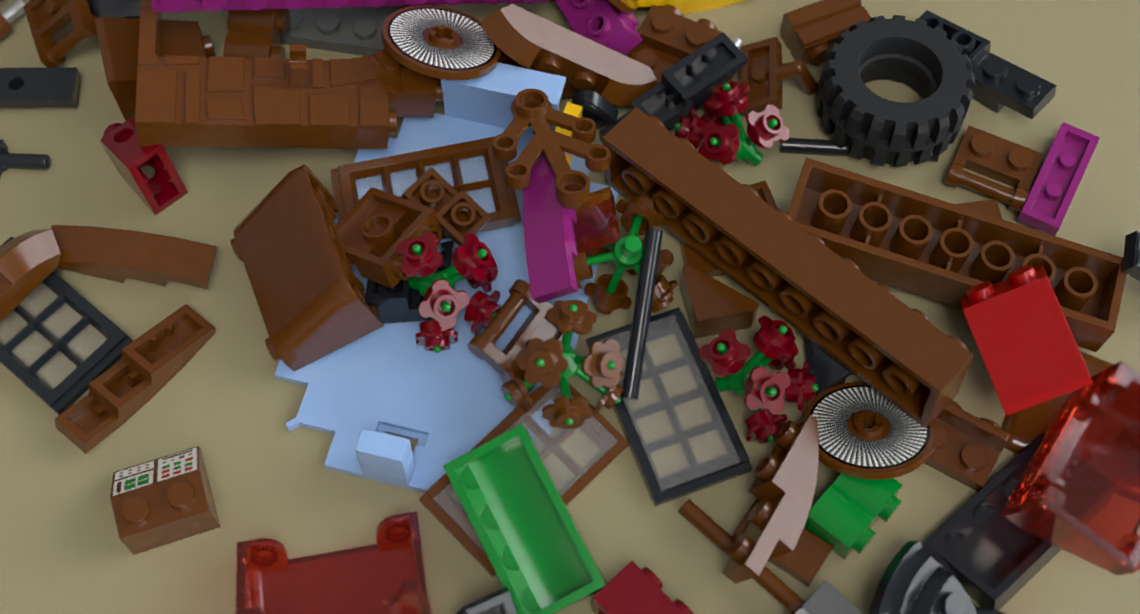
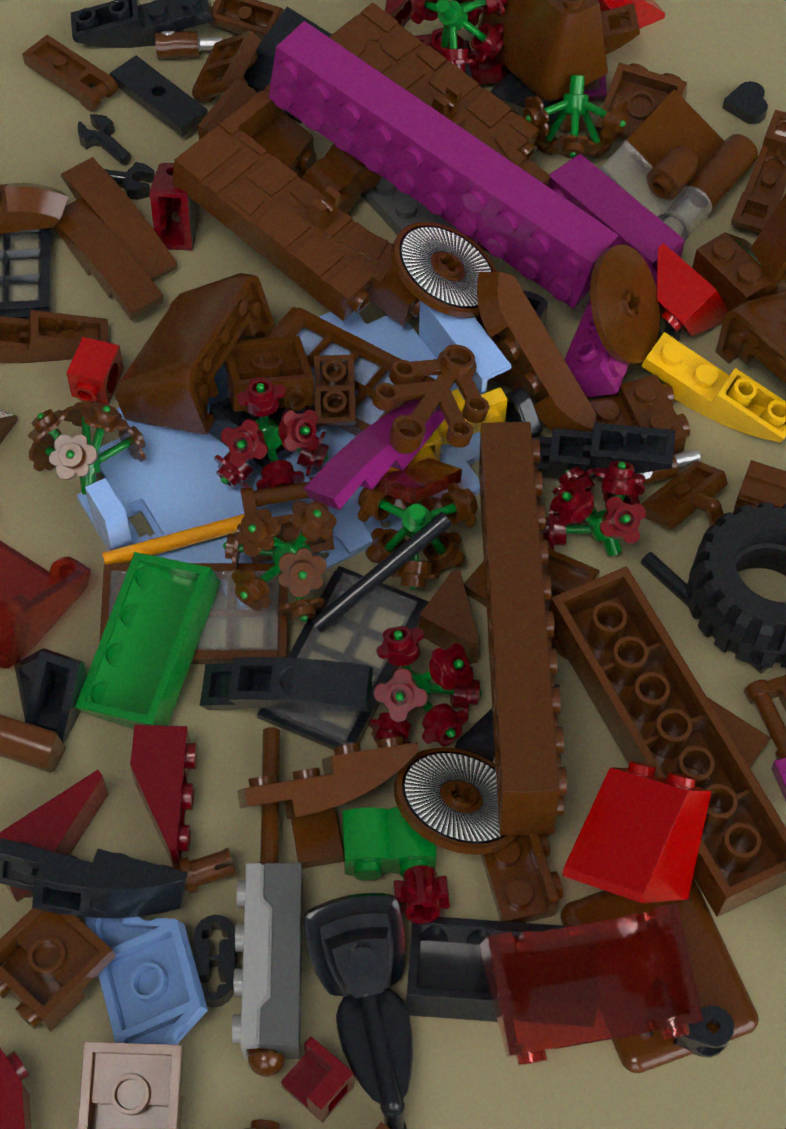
camera: 45 degrees right, 5 degrees down
(67, 178) = (131, 180): none -> black bar
(71, 205) = (110, 203): none -> reddish brown slope
(228, 353) = (95, 370): none -> red brick
(316, 434) = (76, 454): none -> reddish brown plant
(448, 430) = (175, 540): none -> light orange bar
(665, 462) = (287, 683): none -> black slope
(919, 519) = (422, 894): none -> dark red gear

